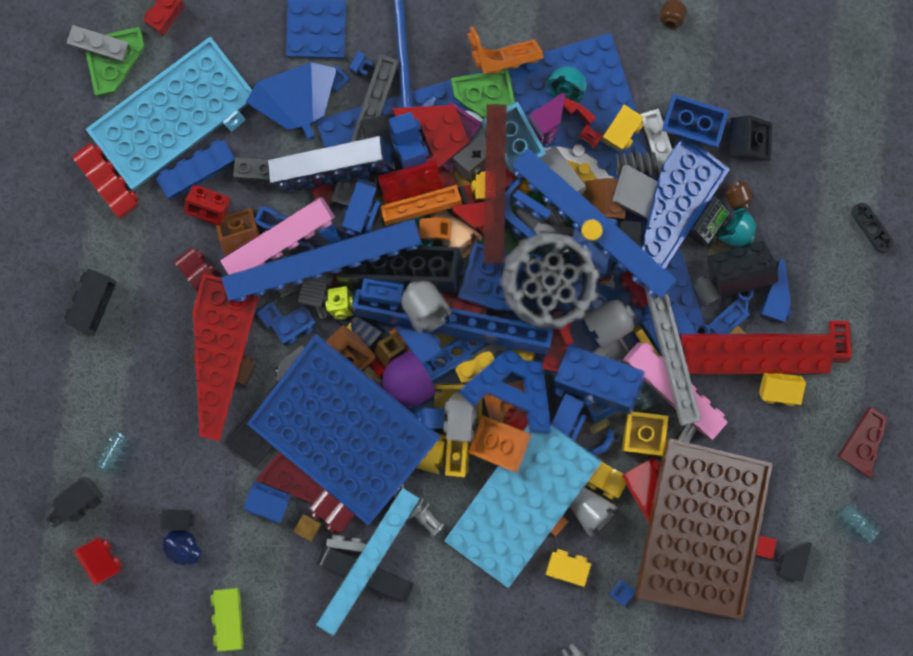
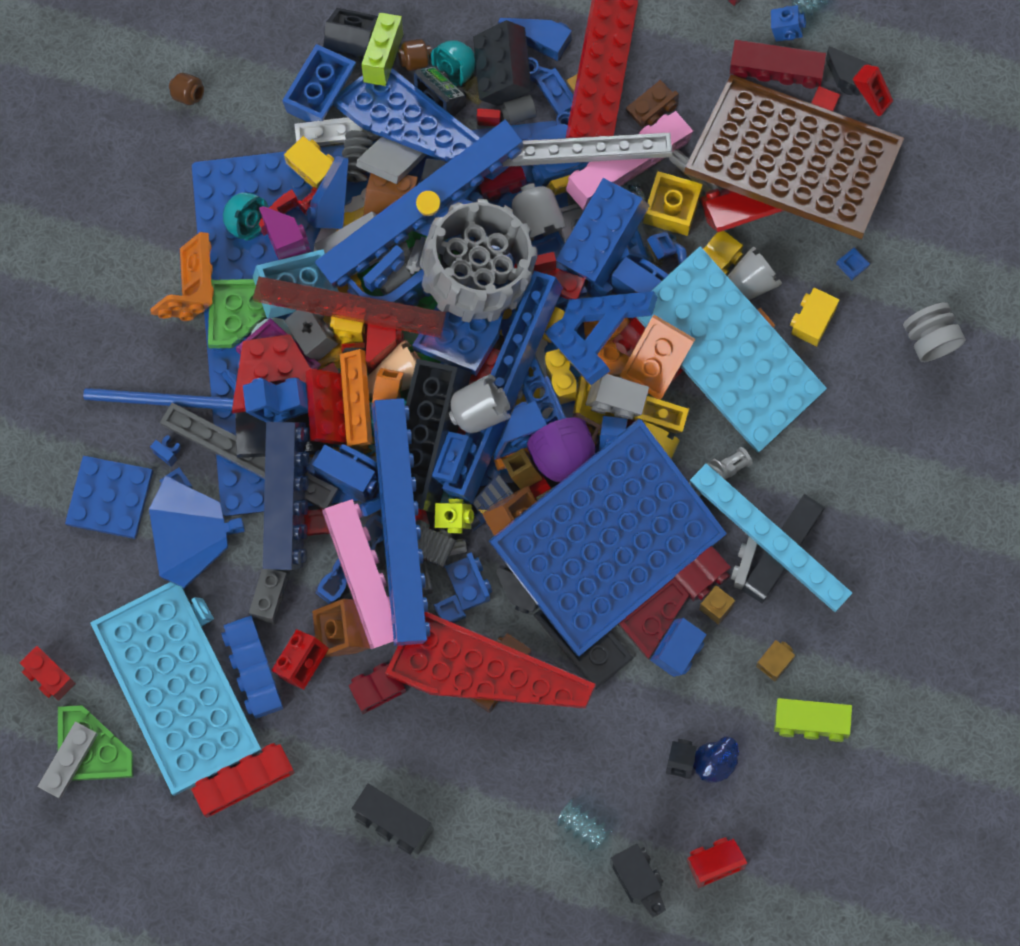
camera: 70 degrees left, 10 degrees down
(271, 582) = (776, 660): none -> pearl gold brick
(436, 402) = (595, 427): none -> reddish brown bracket
(592, 149) = (329, 200): none -> blue slope
(604, 431) = (662, 245): none -> blue tile
(695, 270) = (488, 117): none -> red tile
(733, 401) = (653, 104): none -> reddish brown bracket
(736, 167) = (382, 49): none -> lime brick
(782, 388) = (647, 47): yellow brick -> none
(782, 585) = (873, 87): none -> red slope
(790, 501) = (777, 64): none -> dark red brick
(827, 504) = (787, 23): none -> blue brick

